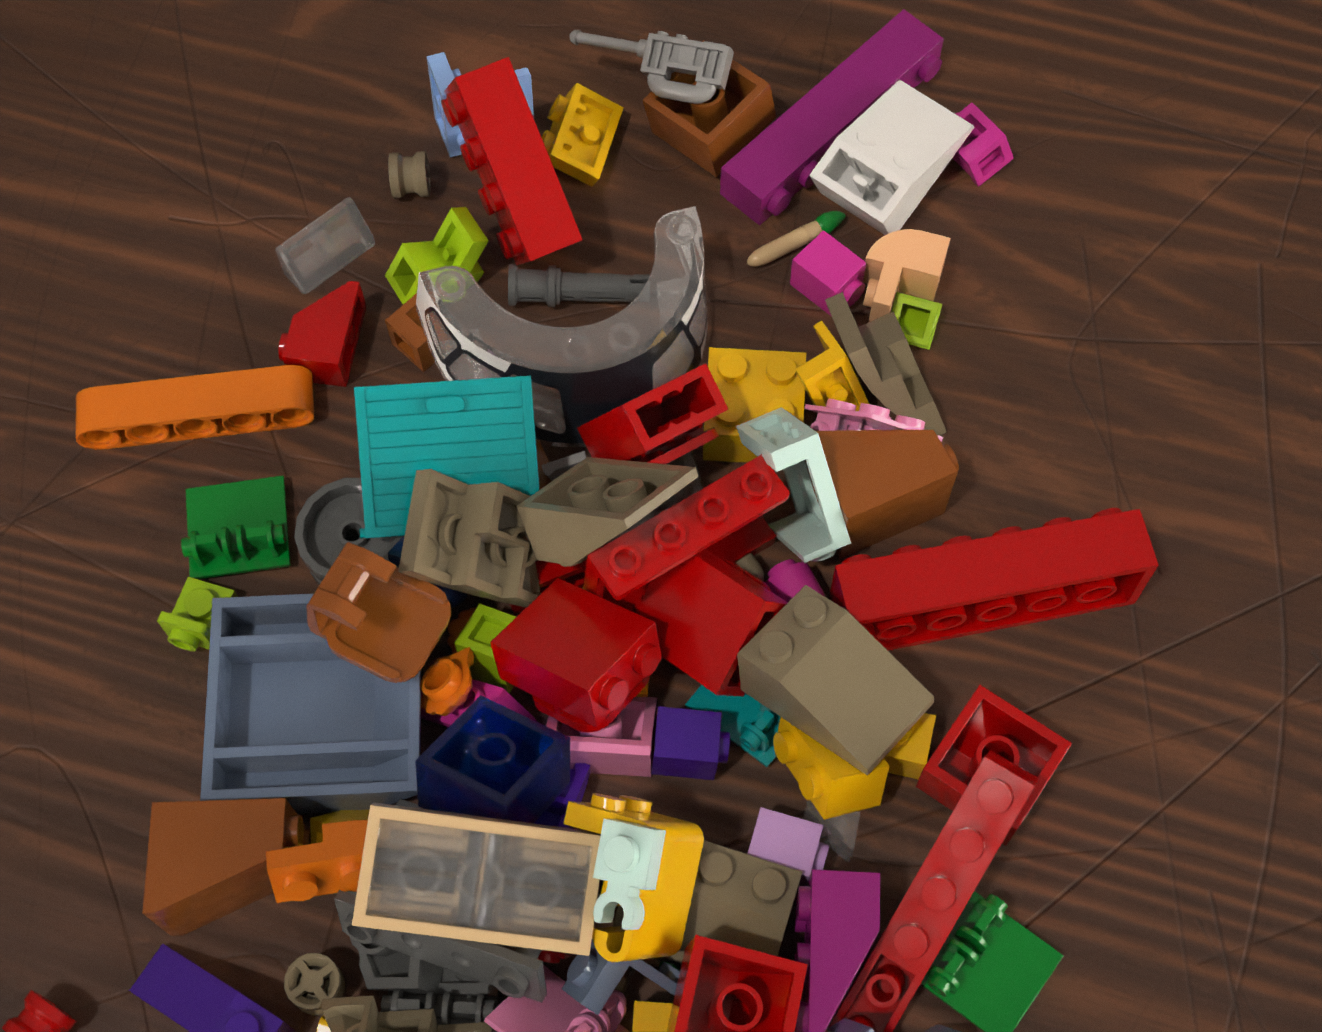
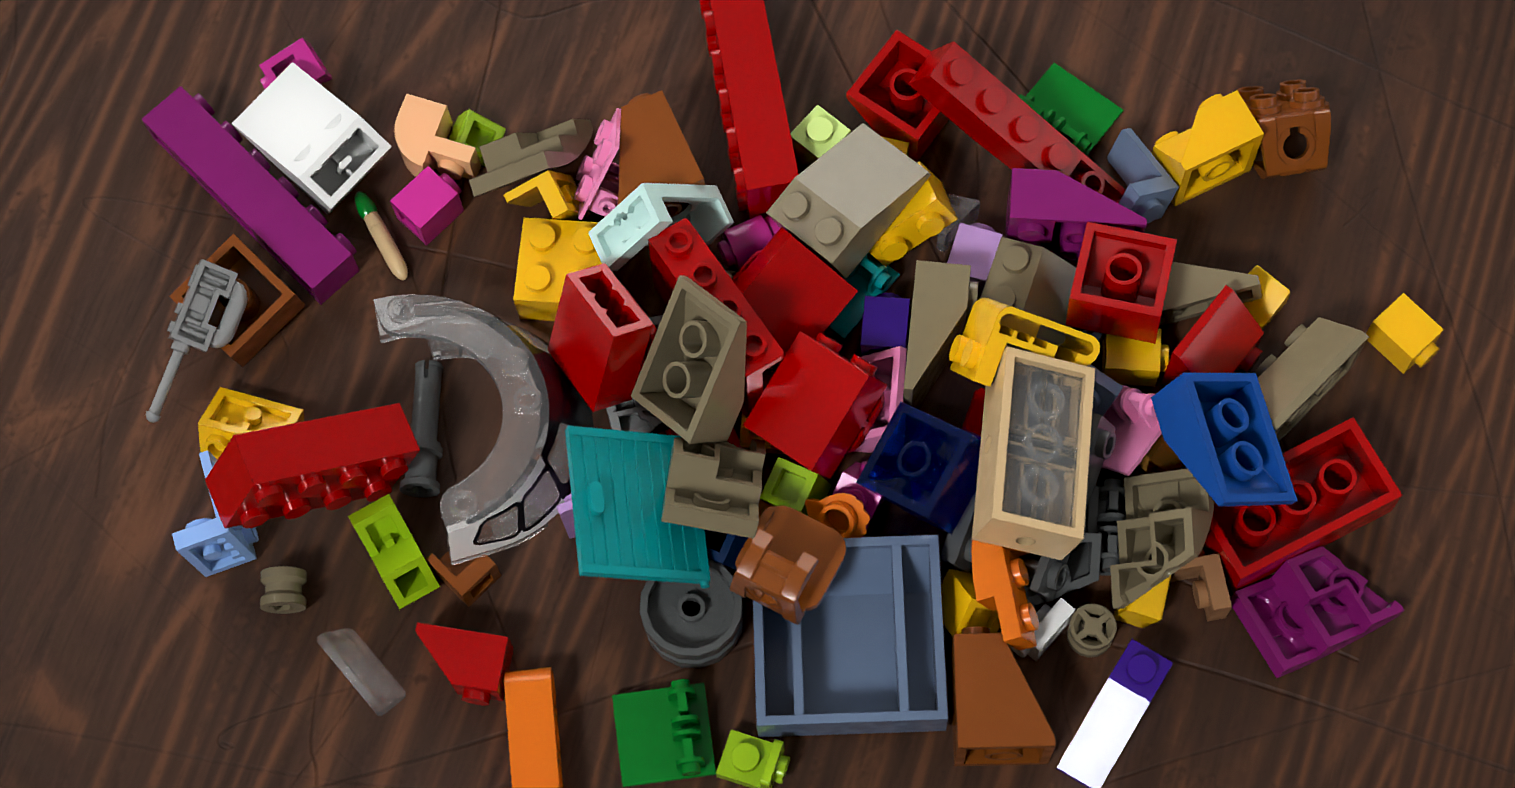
camera: 85 degrees left, 5 degrees up
(321, 930) = (1051, 624): none -> white bracket
(629, 861) = (1030, 326): light aqua plate -> none
(680, 784) = (938, 314): none -> dark tan slope
(932, 661) = (816, 136): none -> yellowish green brick

